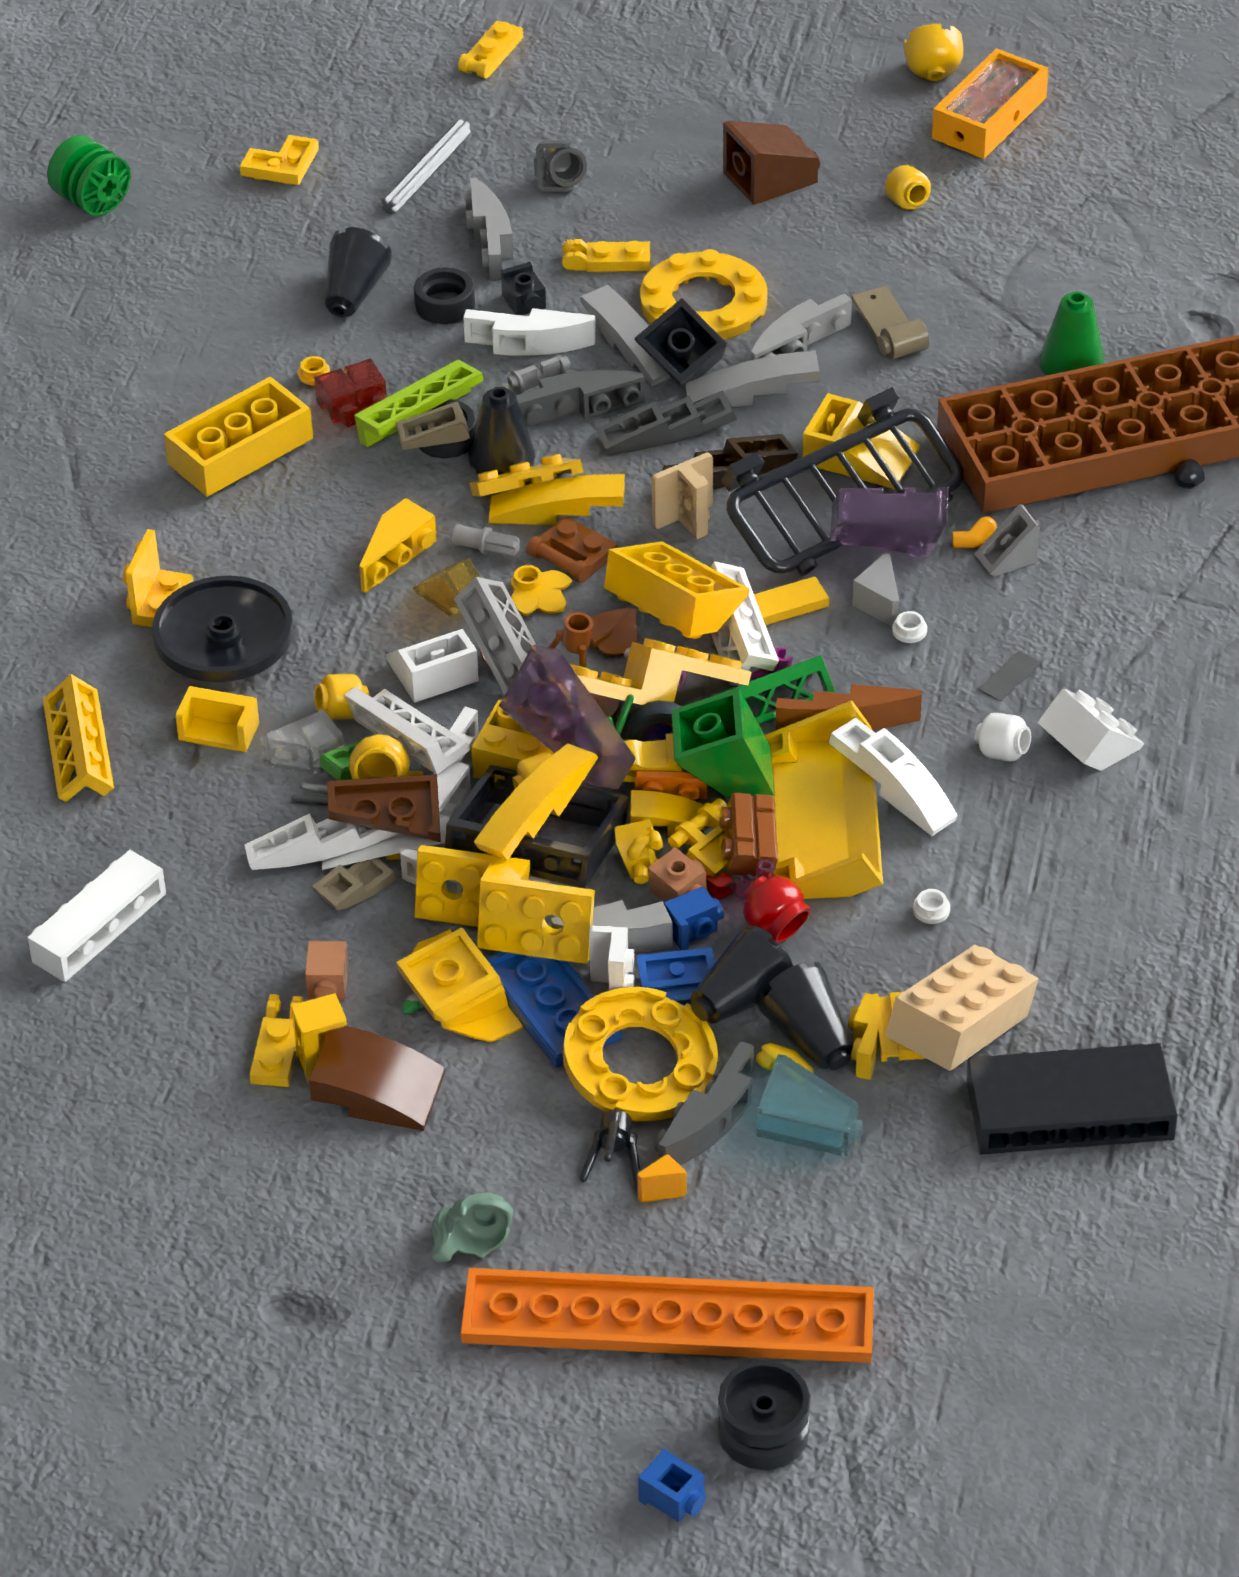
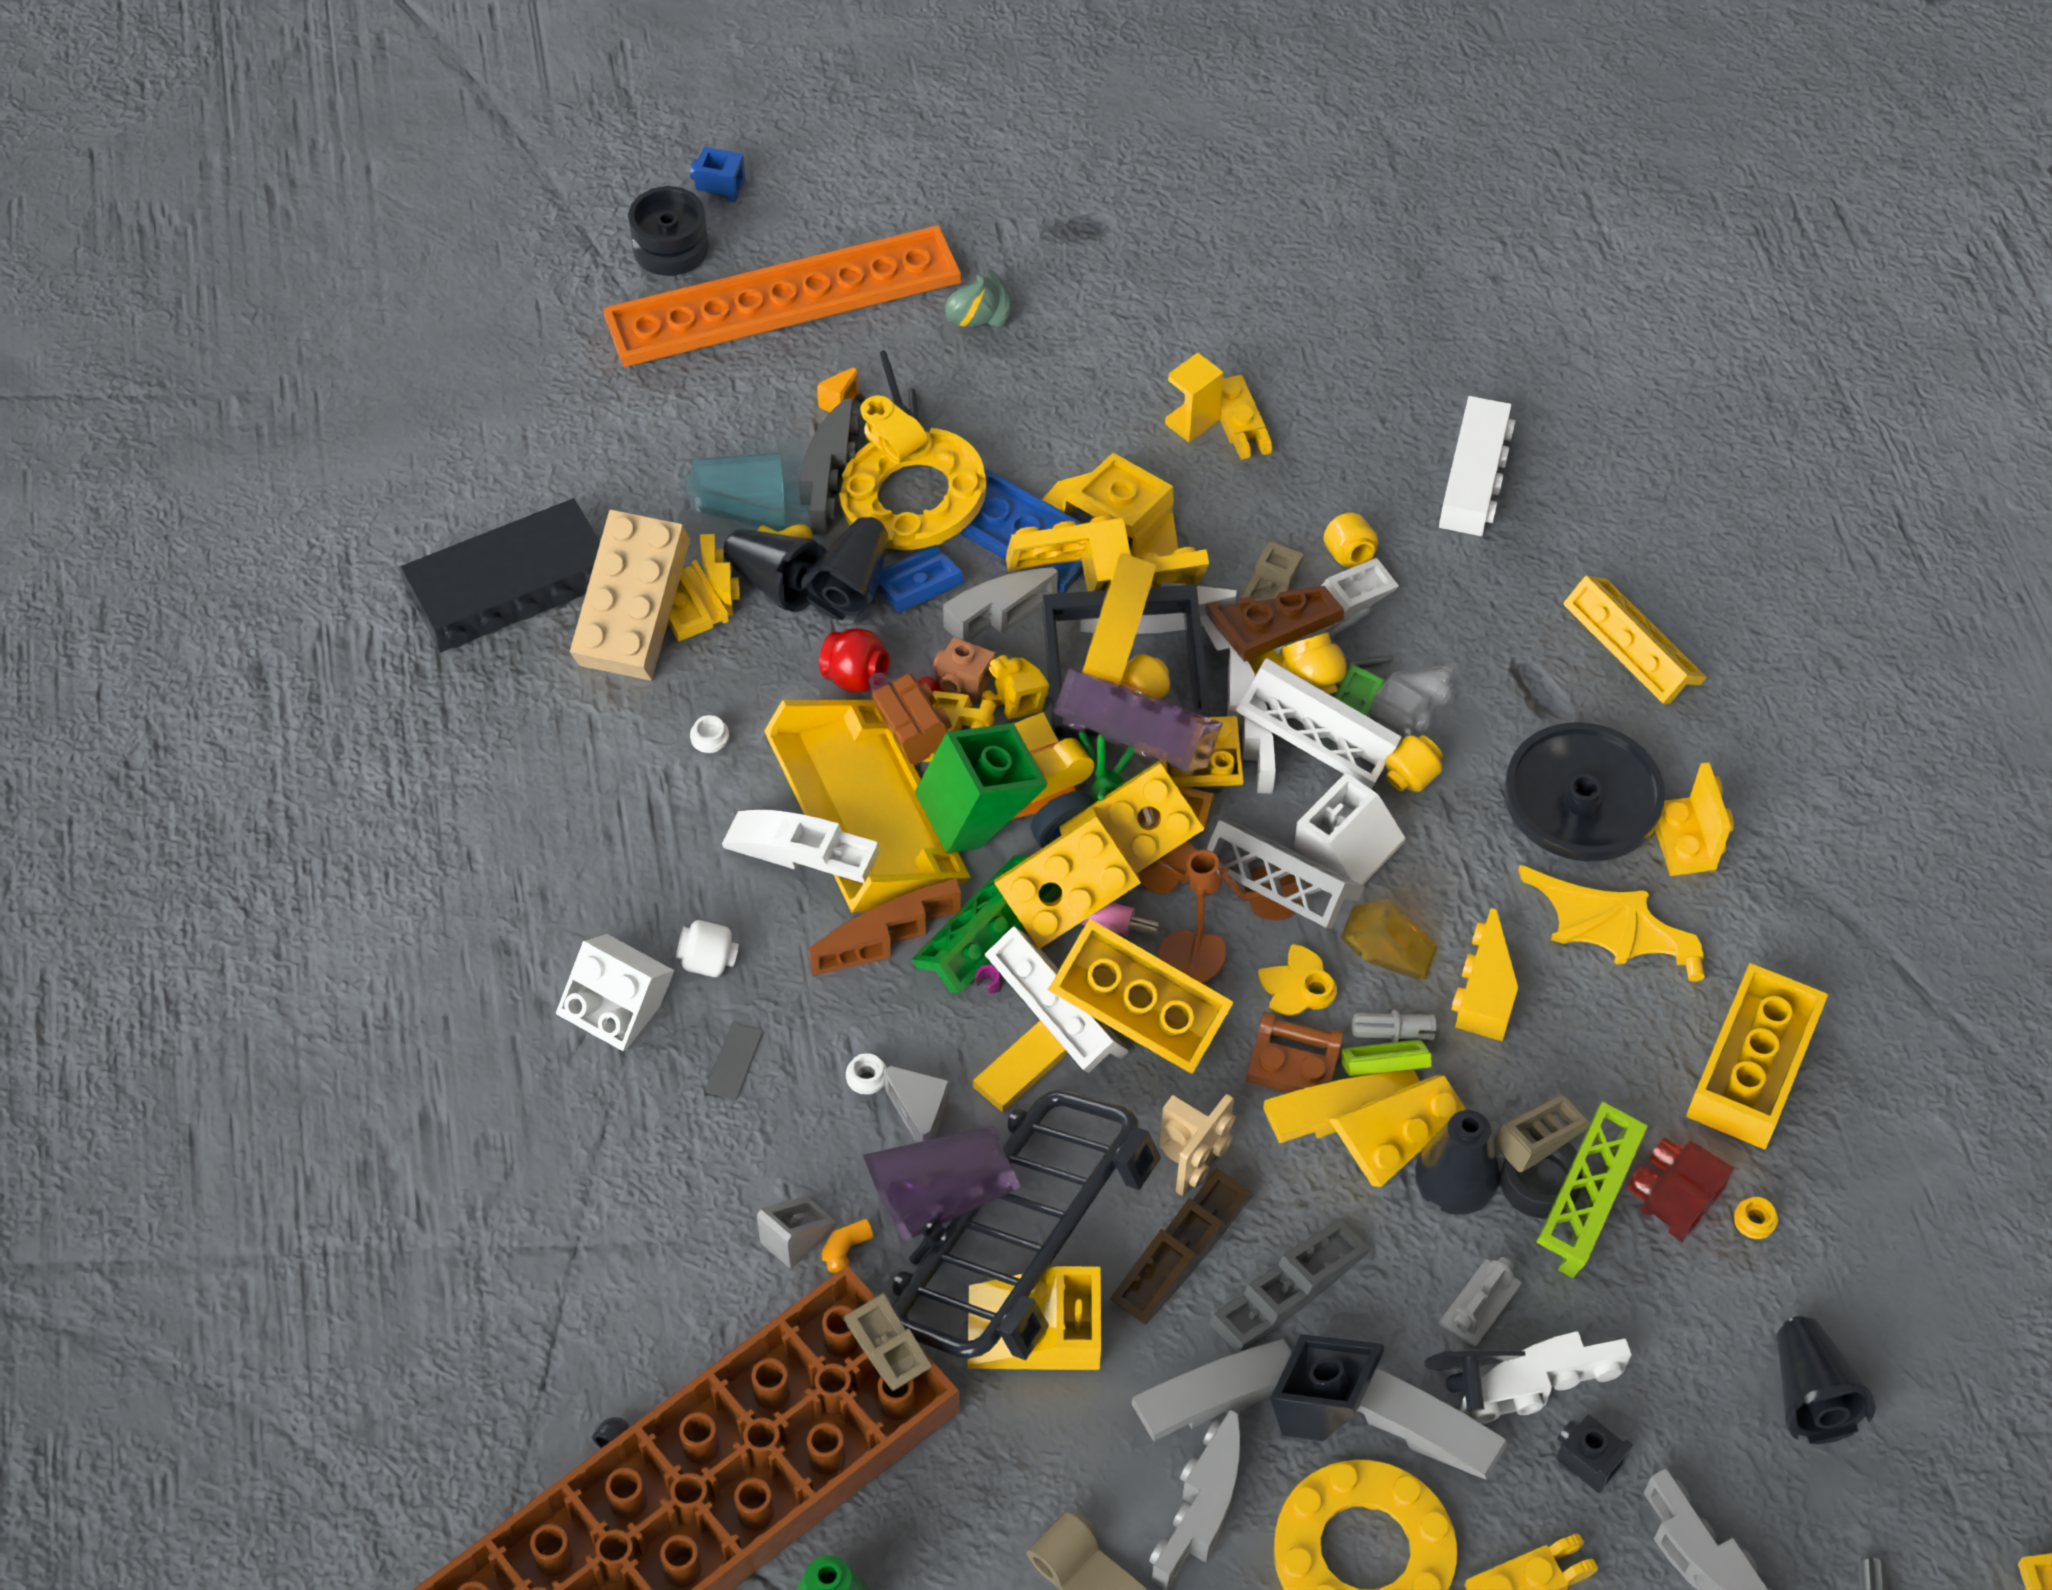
camera: 155 degrees right, 10 degrees up
(217, 719) = (1519, 705): yellow panel -> none
(261, 884) = (1350, 540): none -> yellow head
(265, 561) = (1615, 922): none -> yellow animal
(326, 969) = (1236, 480): nougat brick -> none
(375, 1078) = (1129, 401): reddish brown slope -> none
(444, 280) = (1700, 1377): black tyre -> none
(508, 519) = (1385, 1057): none -> lime tile
(581, 326) = (1470, 1378): none -> black shield
(583, 392) = (1412, 1292): dark grey slope -> none
(611, 957) = (976, 548): white bracket -> none
(637, 1089) = (891, 428): none -> yellow piece
(693, 916) = (930, 636): blue brick -> none
(977, 426) = (887, 1342): none -> dark tan slope

